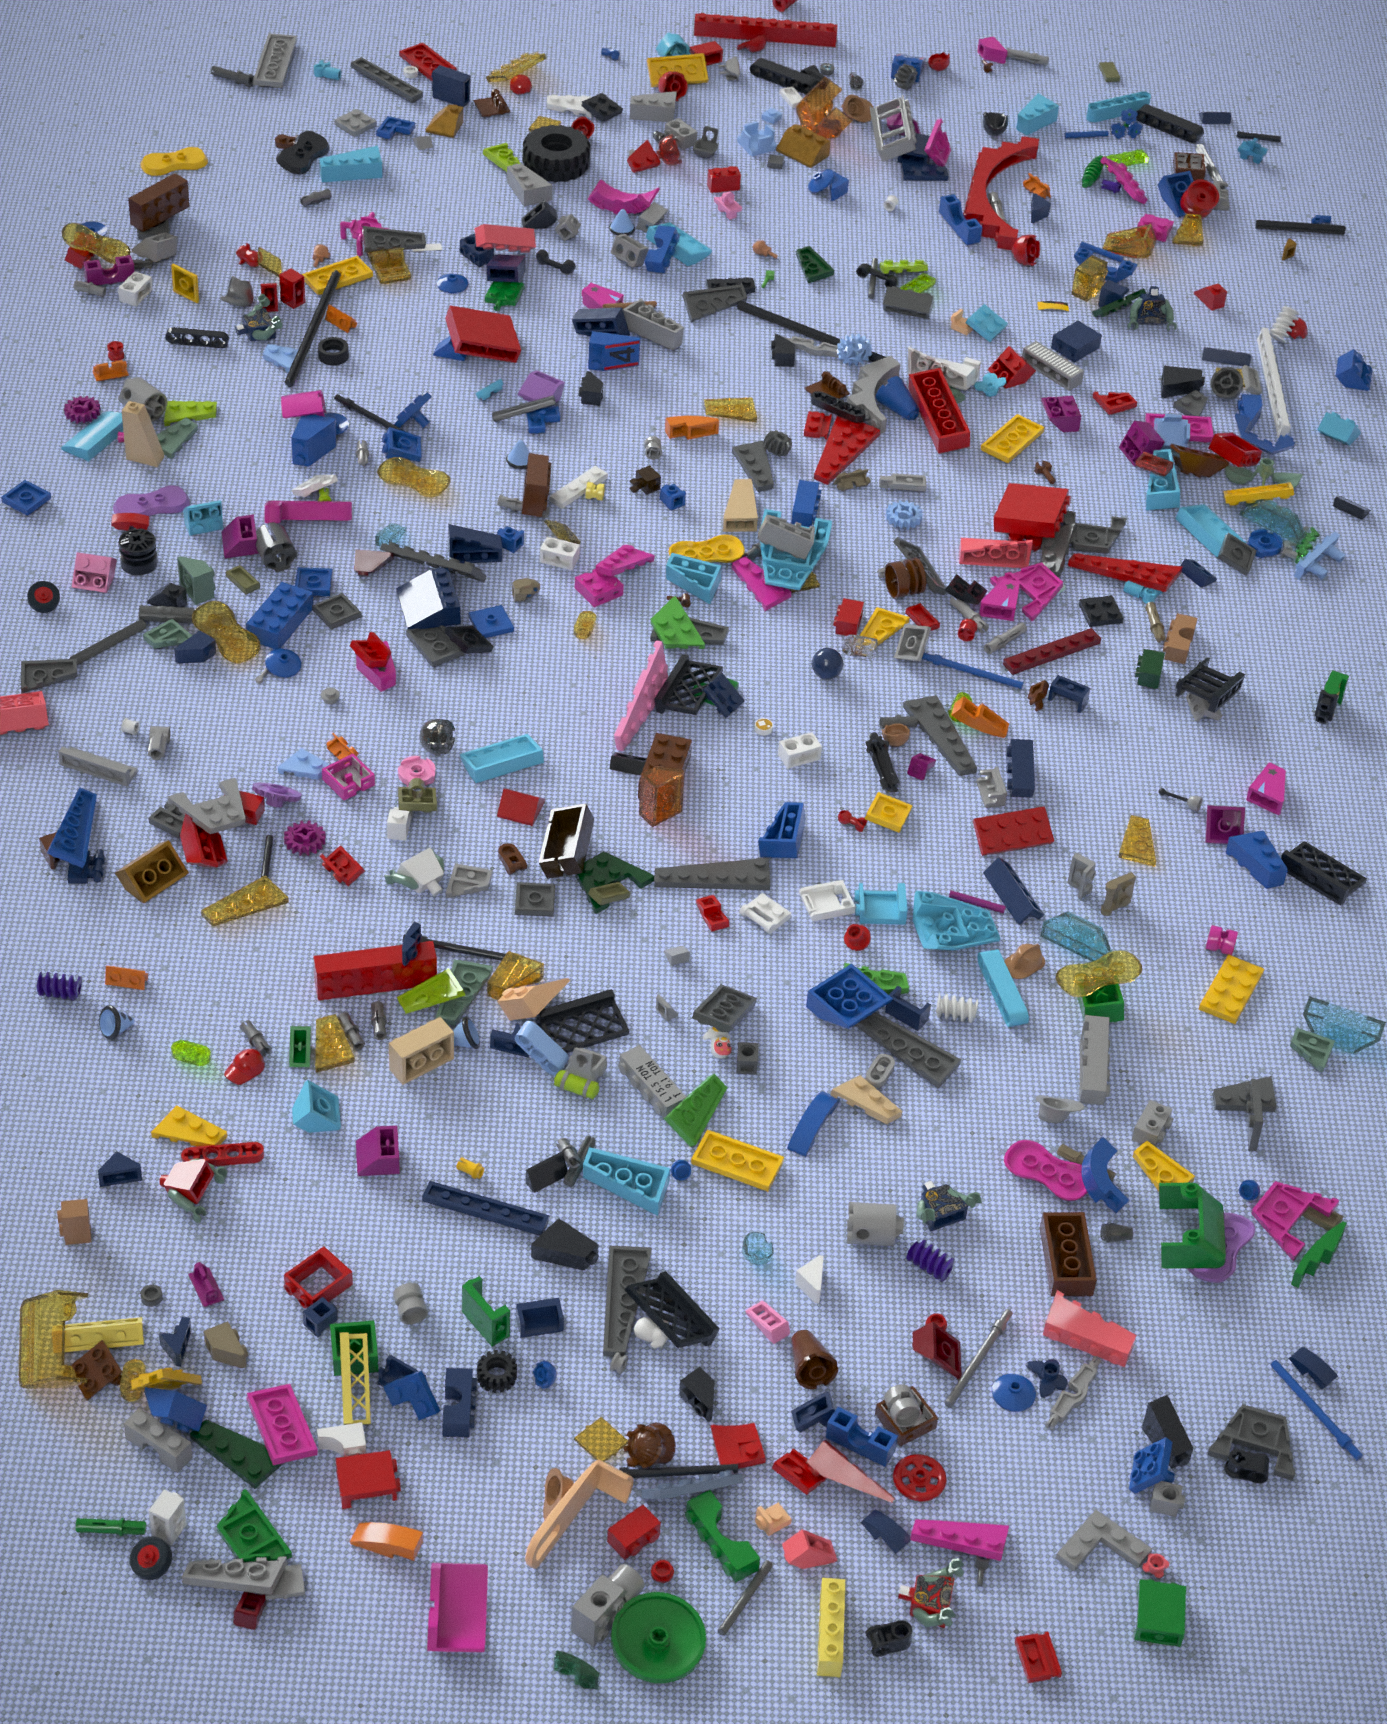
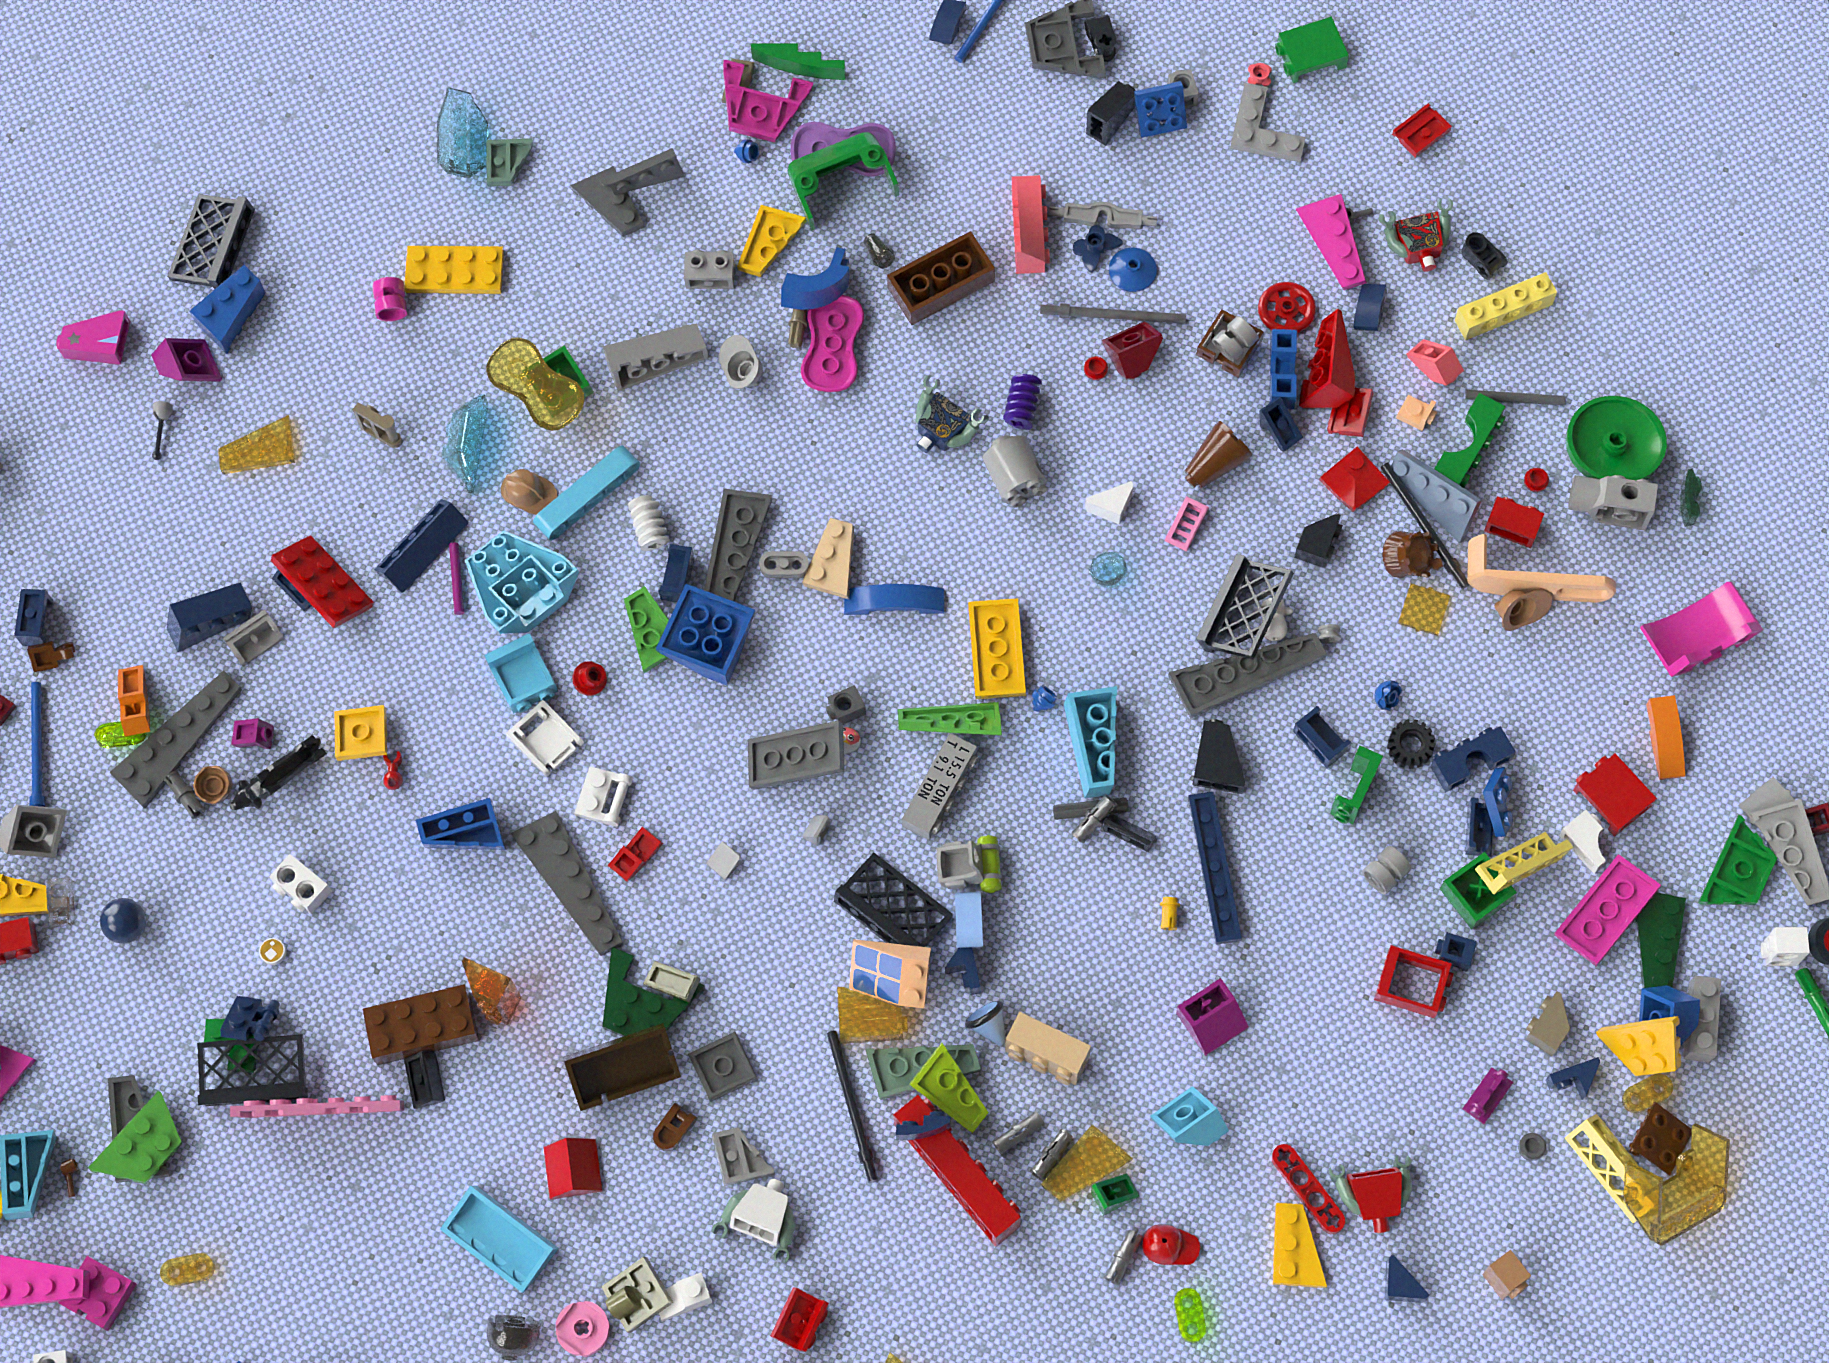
camera: 110 degrees left, 25 degrees up
(1082, 874) = (365, 469): light grey bracket -> none

